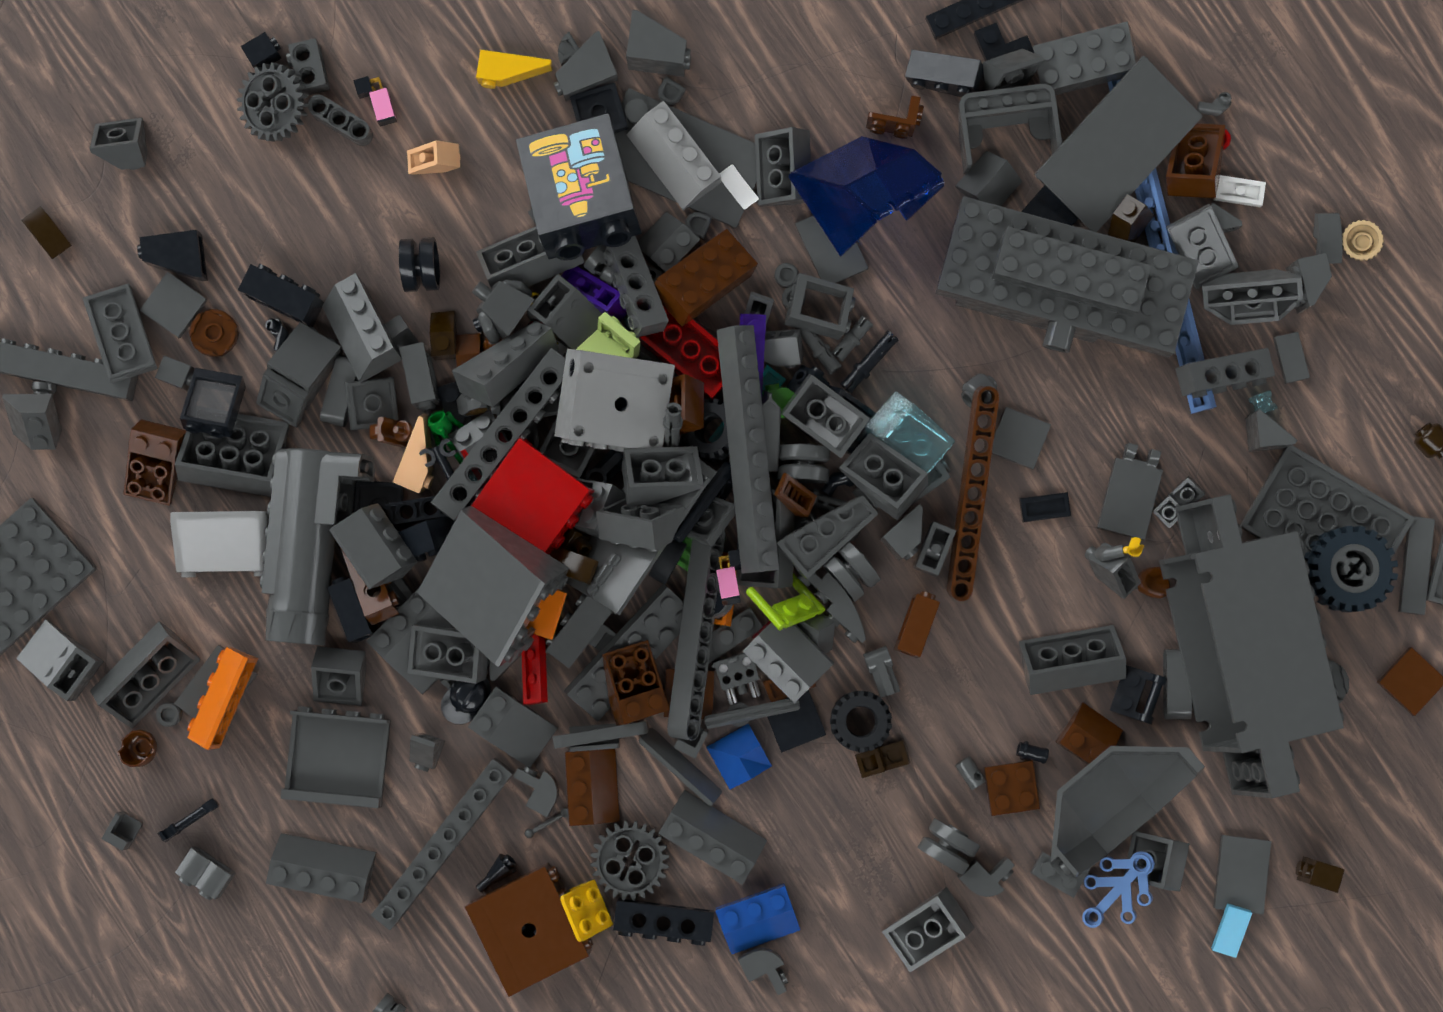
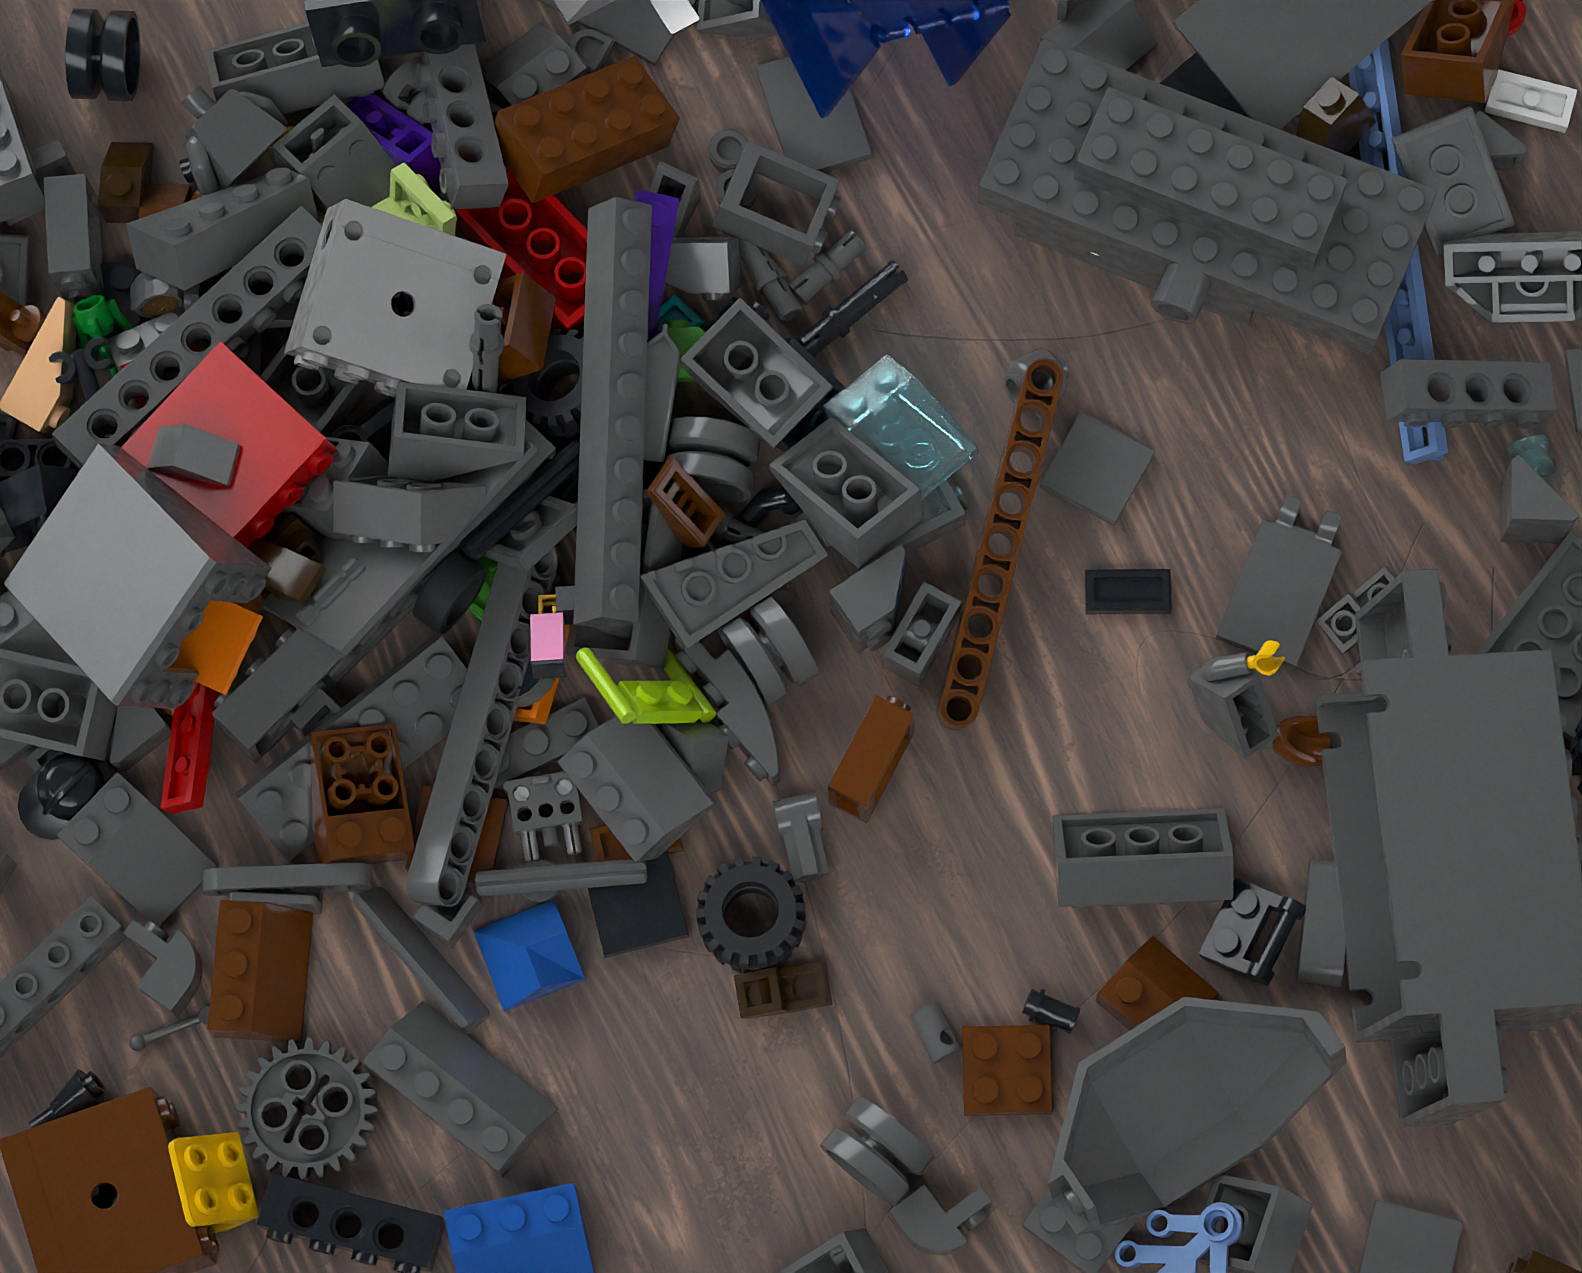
camera: 10 degrees right, 10 degrees down
(514, 507) = (194, 454): none -> dark grey slope

